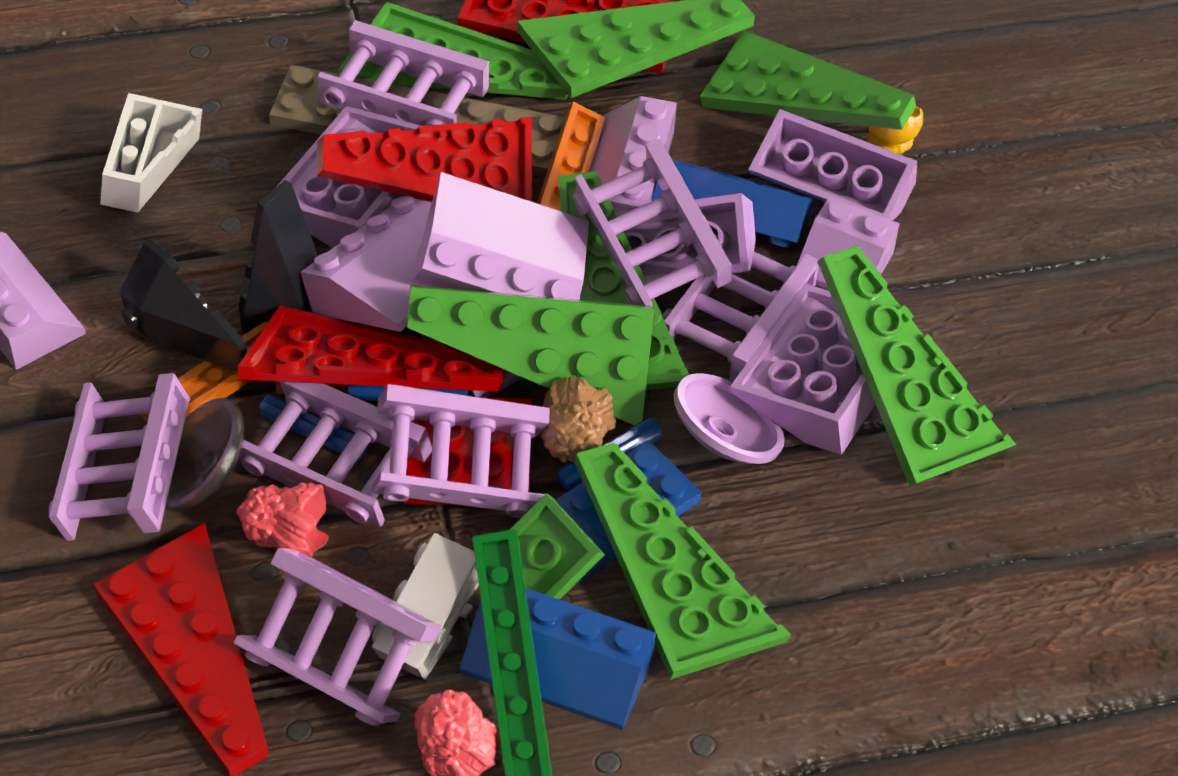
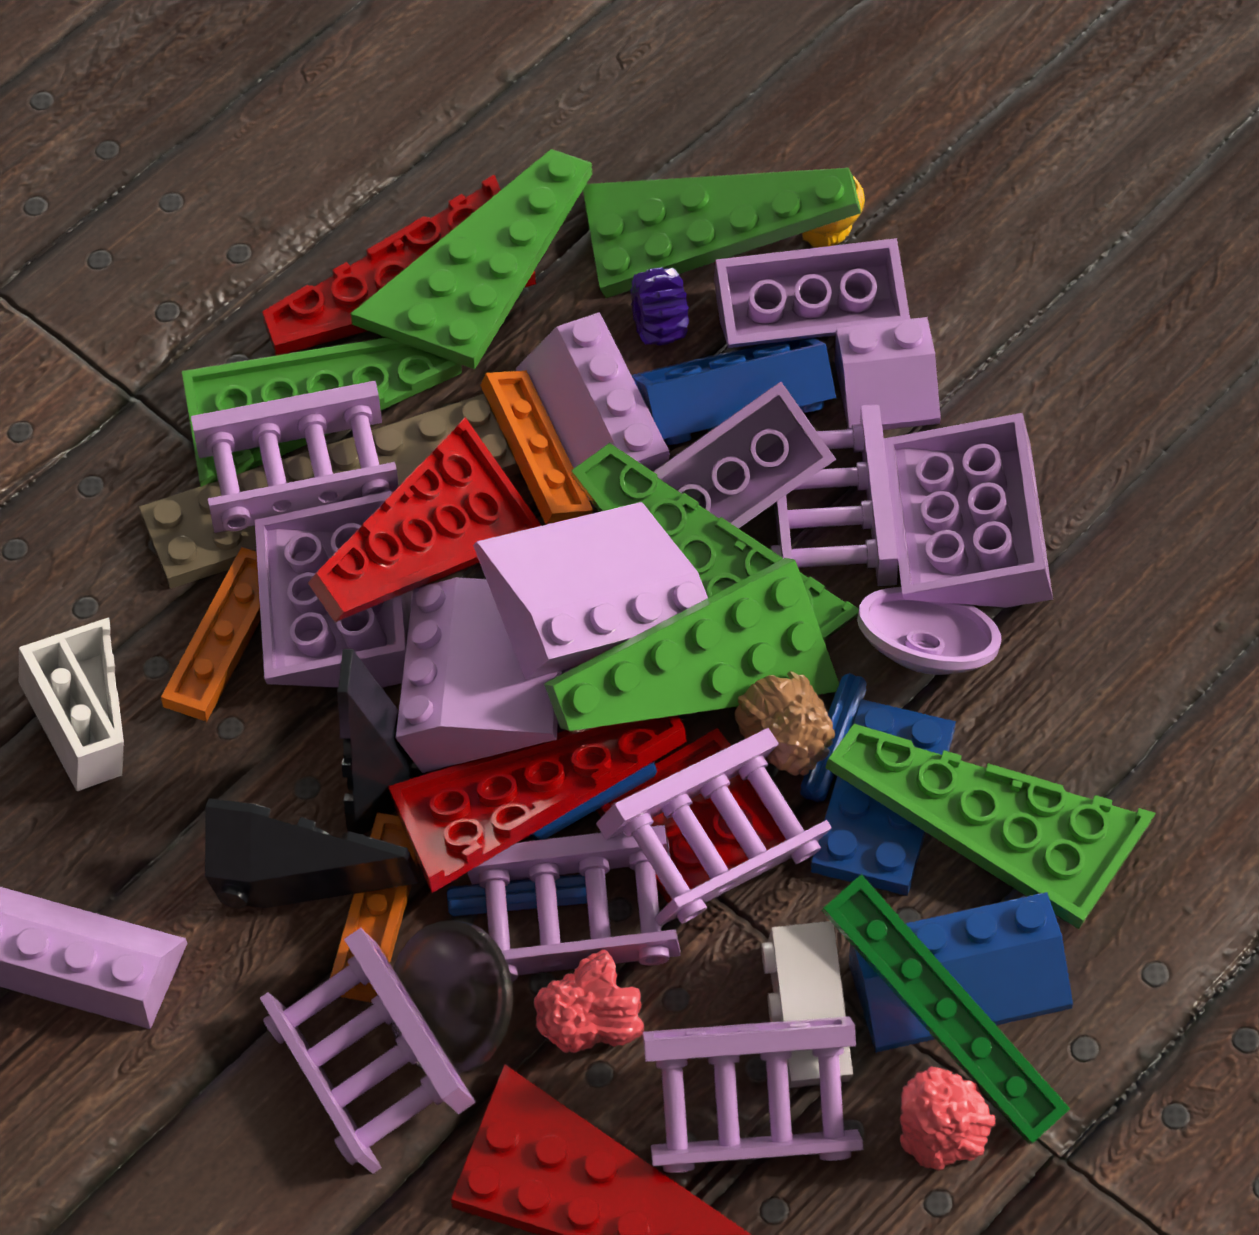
camera: 30 degrees left, 5 degrees up
(258, 170) = (217, 642): none -> orange plate
(553, 549) = (886, 861): bright green plate -> none
(674, 198) = (721, 427): lavender fence -> none
(724, 123) = (659, 306): none -> dark purple gear
(913, 383) = (1078, 482): bright green wing -> none

